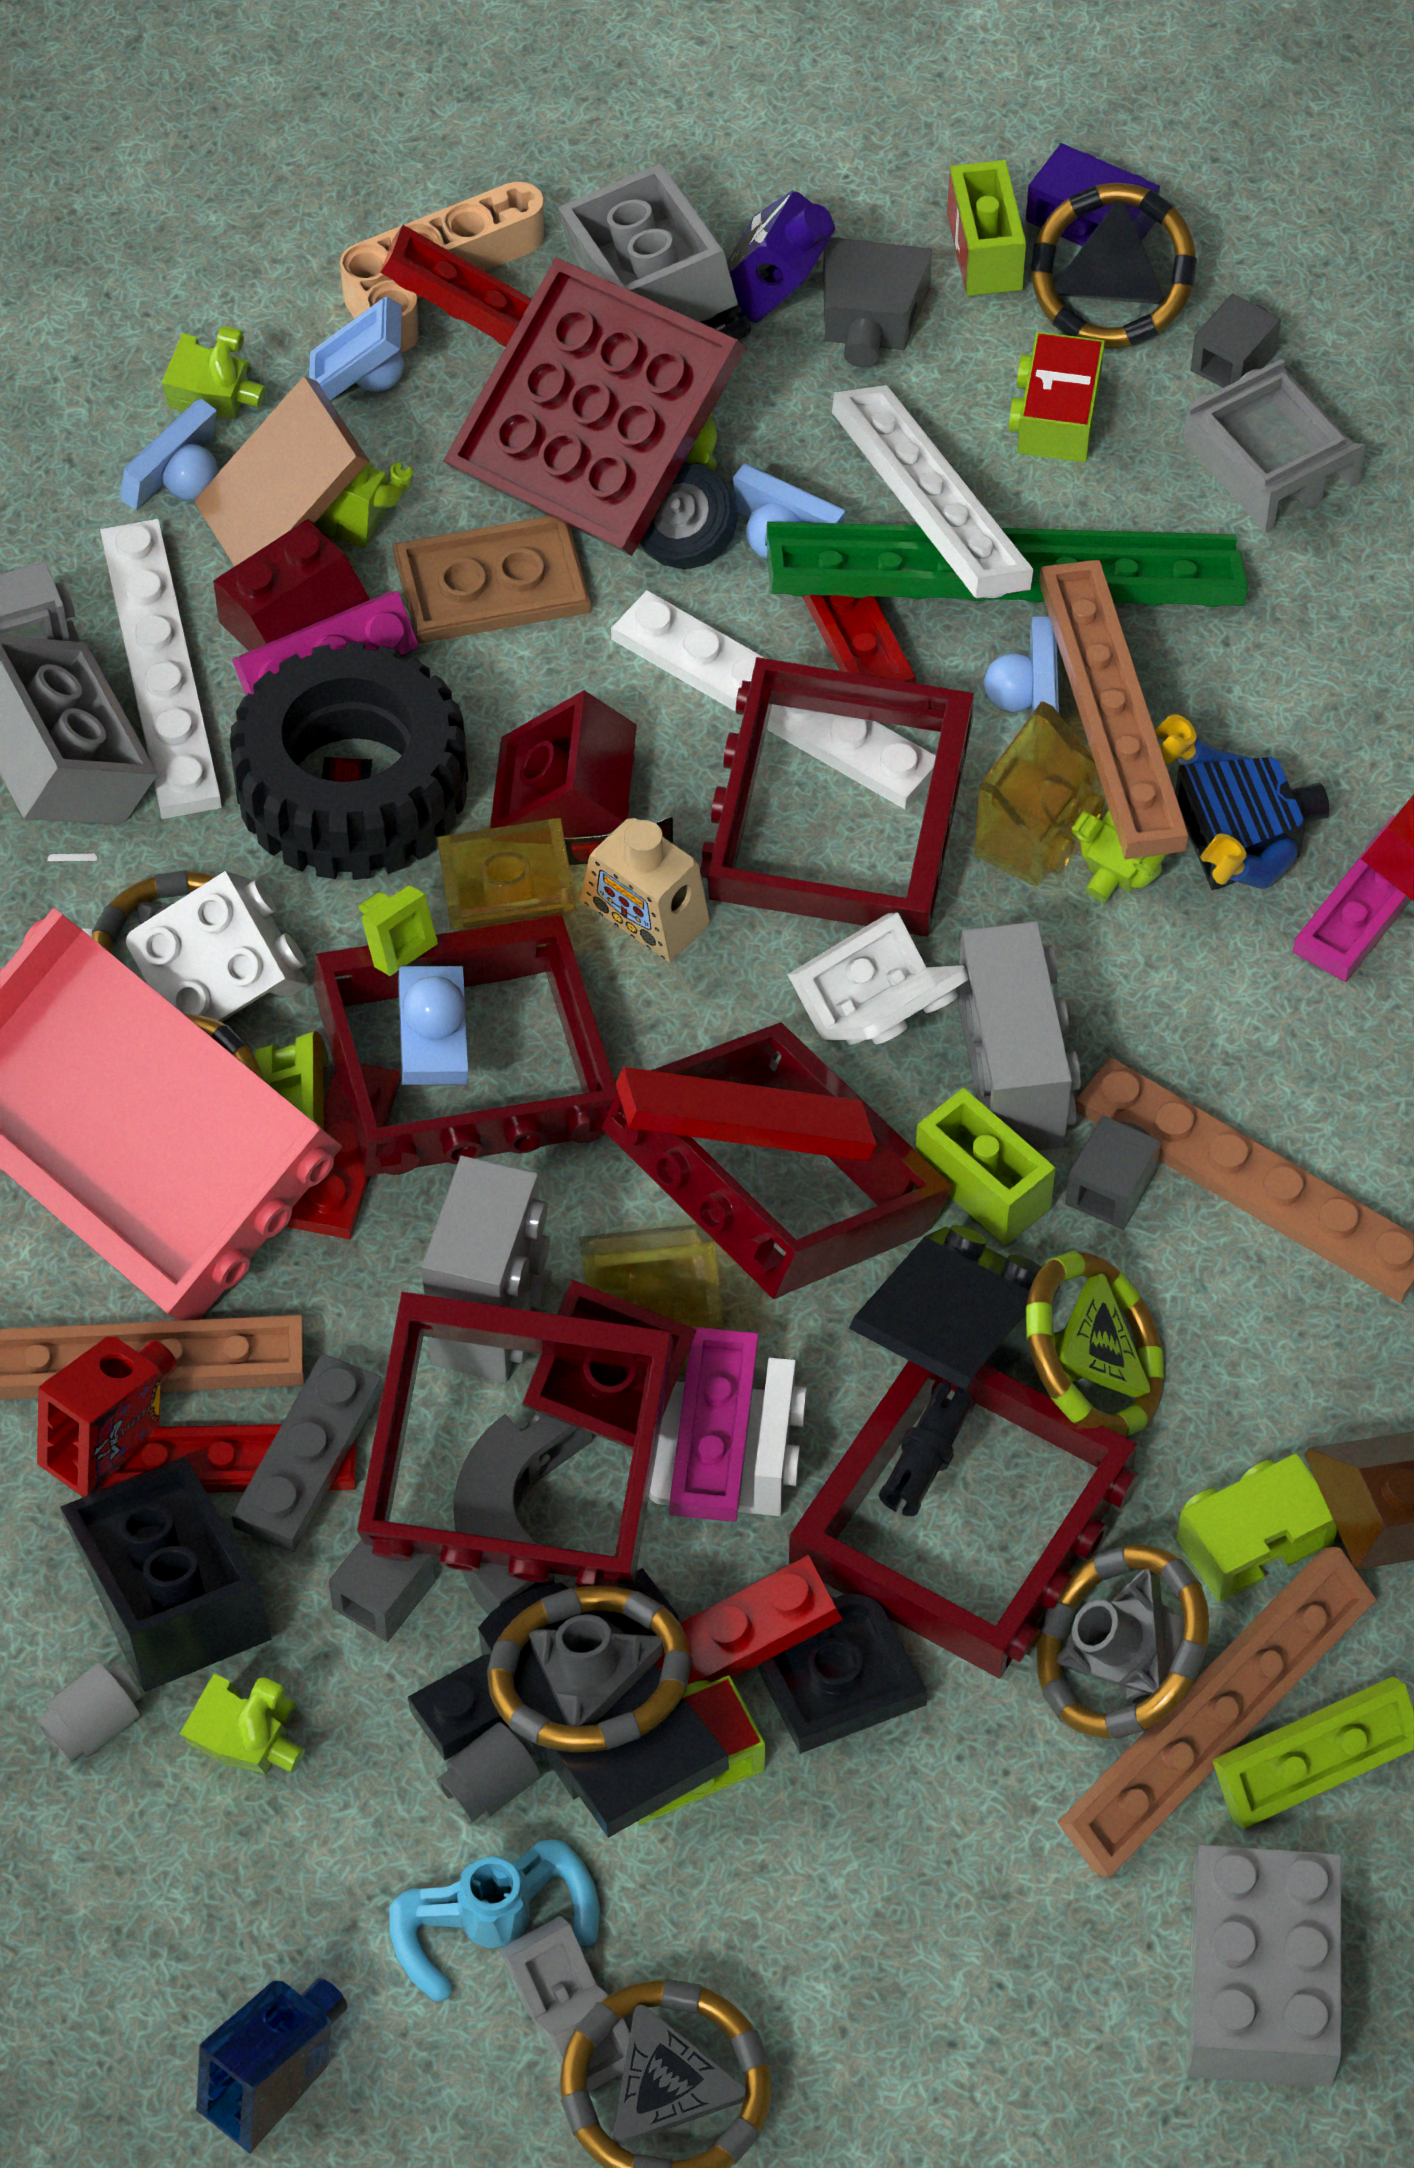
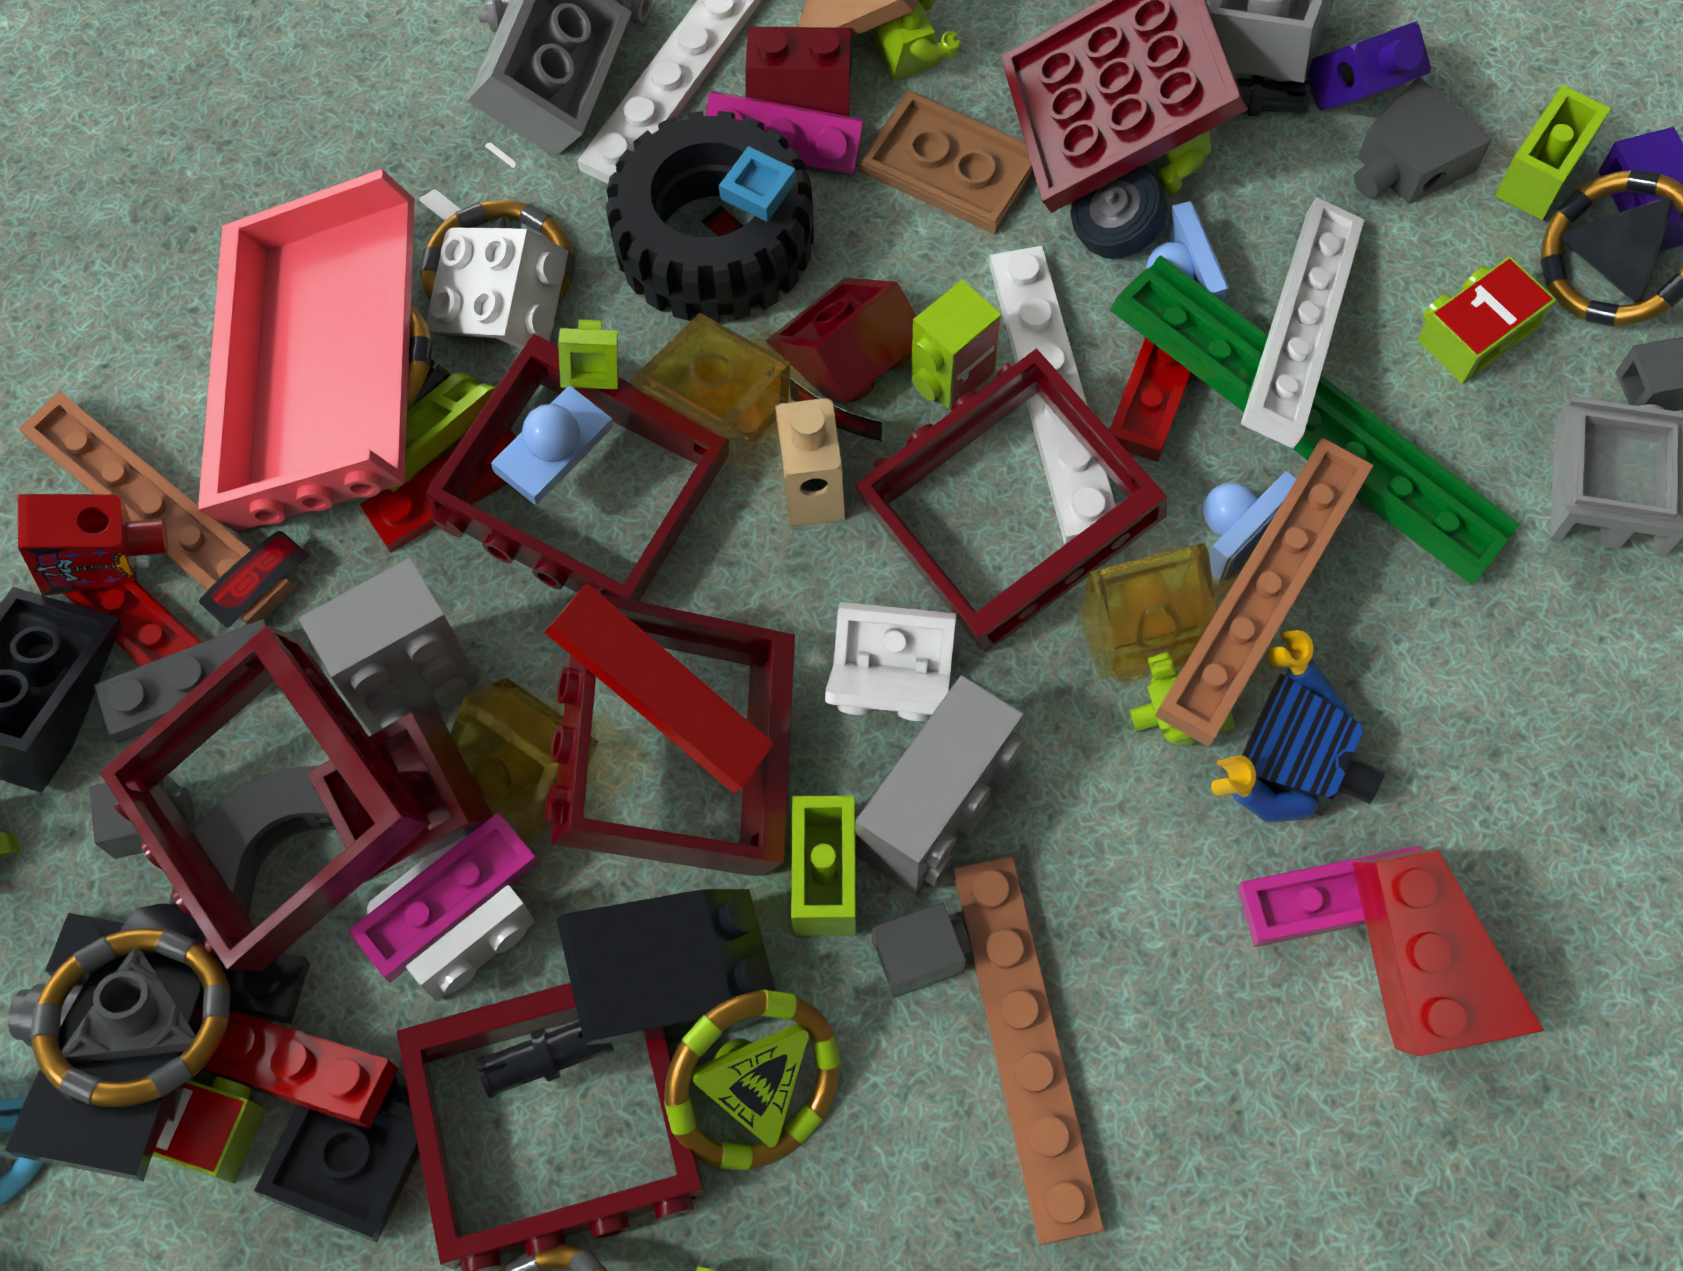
camera: 45 degrees right, 10 degrees up
(268, 1338) = (252, 577): none -> sticker
(397, 689) = (757, 183): none -> dark azure plate
(674, 711) = (954, 344): none -> lime brick

